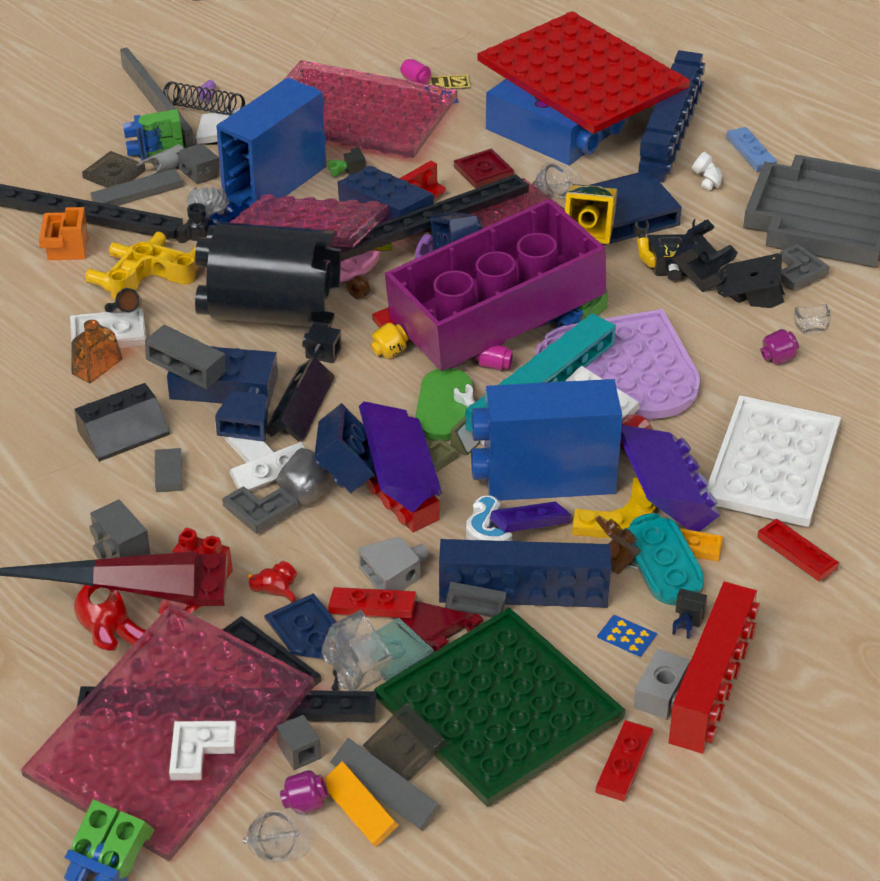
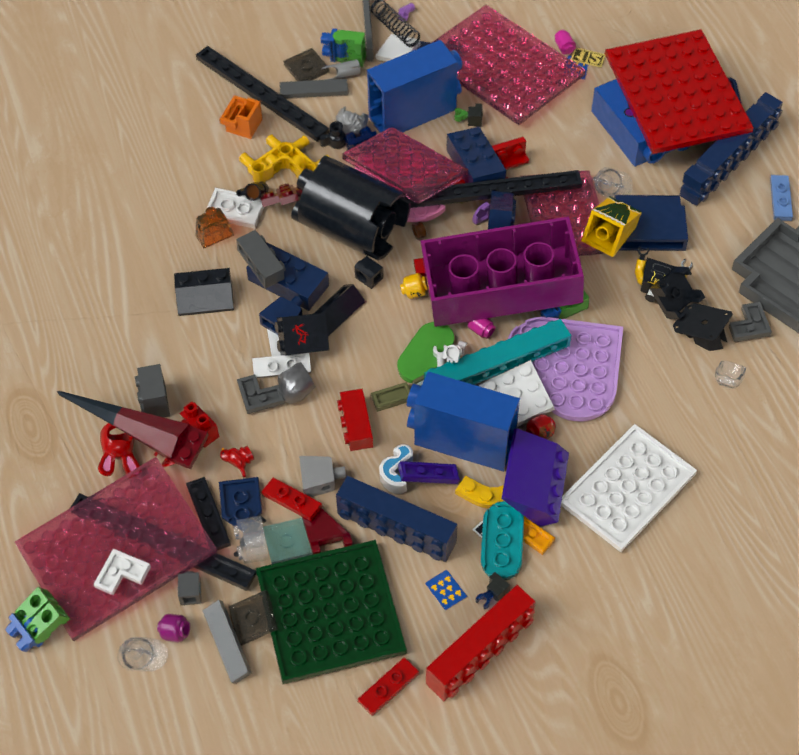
camera: 25 degrees right, 15 degrees up
(168, 470) = (217, 340): dark grey tile -> none
(173, 290) = (283, 195): none -> dark red plate
(199, 163) = (359, 79): dark grey head -> none
(282, 419) = (302, 334): none -> black panel
(344, 449) = (329, 373): dark blue brick -> none
(360, 804) = (203, 649): light orange tile -> none
(400, 454) = (364, 390): dark purple slope -> none
(475, 599) = (356, 525): dark grey tile -> none
(483, 168) = (568, 149): dark red tile -> none
(490, 376) = (453, 352): none -> white piece
(622, 545) = (473, 519): reddish brown bracket -> none
(660, 684) = (447, 629): light grey brick -> none
(712, 174) = (733, 215): white arm -> none
(779, 347) = (689, 391): magenta head -> none
(798, 550) = (600, 569): red plate -> none

